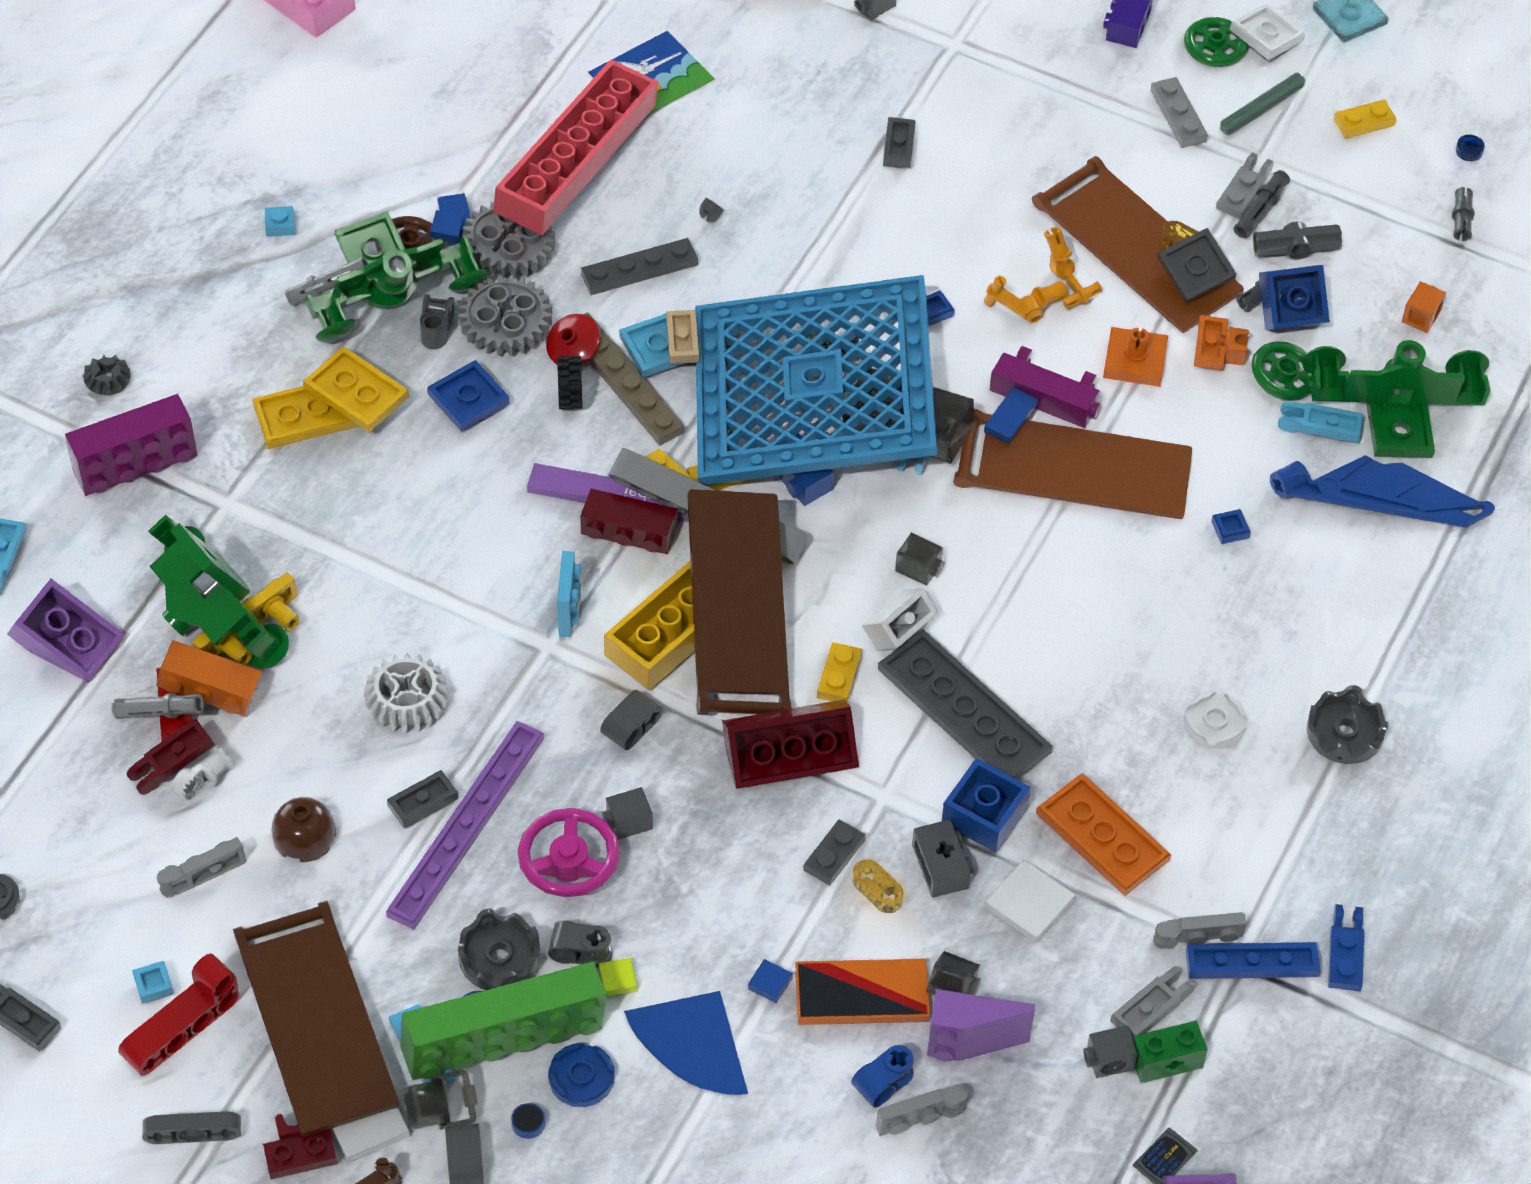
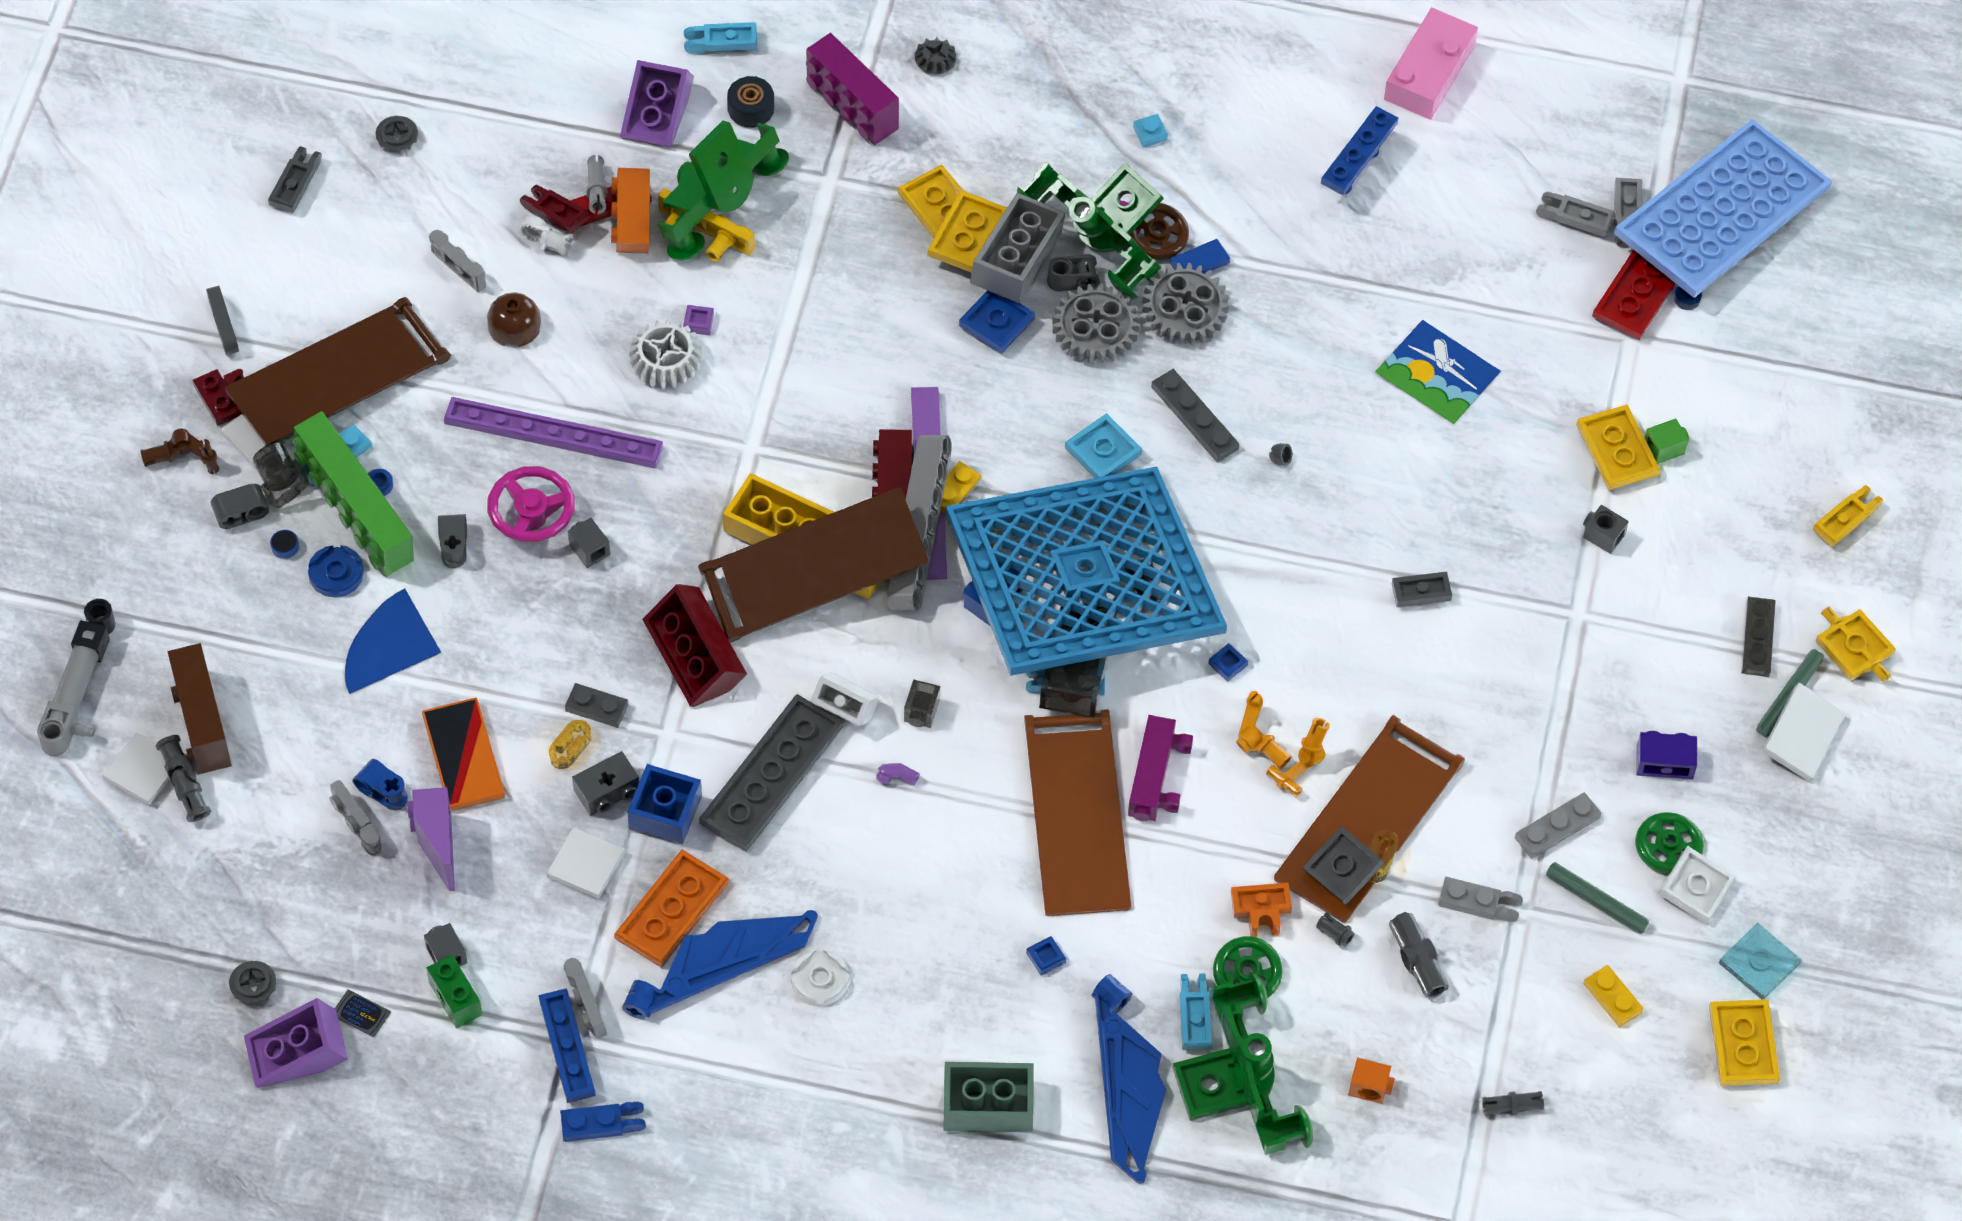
camera: 75 degrees right, 5 degrees up
(100, 545) = (750, 101): none -> black wheel
(152, 982) = (345, 258): medium azure plate -> none
(183, 1018) = (333, 295): red beam -> none
(297, 294) = (1076, 174): light grey pin -> none
(366, 656) = (699, 319): none -> medium lavender tile
(389, 55) = (1359, 151): none -> blue plate
(399, 347) = (1017, 247): none -> light grey brick
(422, 798) = (565, 393): dark grey plate -> none
(446, 226) = (1179, 251): blue tile -> none
(493, 933) = (428, 466): dark grey plate -> none
(568, 594) = (792, 439): medium azure plate -> none
(569, 382) = (1027, 387): black tyre -> none
(575, 147) = (1300, 322): coral brick -> none
(583, 342) = (1083, 382): red dish -> none
(618, 977) = (432, 574): neon yellow tile -> none
(631, 719) = (685, 523): dark grey beam -> none
(635, 391) = (1062, 427): dark tan plate -> none
(682, 336) = (1106, 459): tan plate -> none
(770, 981) = (456, 684): blue tile -> none
(839, 672) = (784, 670): yellow plate -> none
(954, 975) = (484, 814): clear smoke brick -> none
(989, 601) = (899, 770): none -> medium lavender arm
(1011, 415) = (1110, 745): blue tile -> none
(1135, 356) = (1225, 840): orange tile -> none
(1152, 1003) = (502, 974): light grey hinge -> none
(1174, 804) = (718, 956): none -> blue wing
(1267, 196) = (1490, 927): dark grey pin -> none
(1294, 297) = (1327, 954): blue brick -> none
(1350, 710) = (830, 1064): dark grey plate -> none
(1391, 600) = (988, 1096): none -> sand green brick
(1433, 41) = (1744, 1042): none -> yellow plate
(1470, 147) = (1610, 1100): clear blue tile -> none

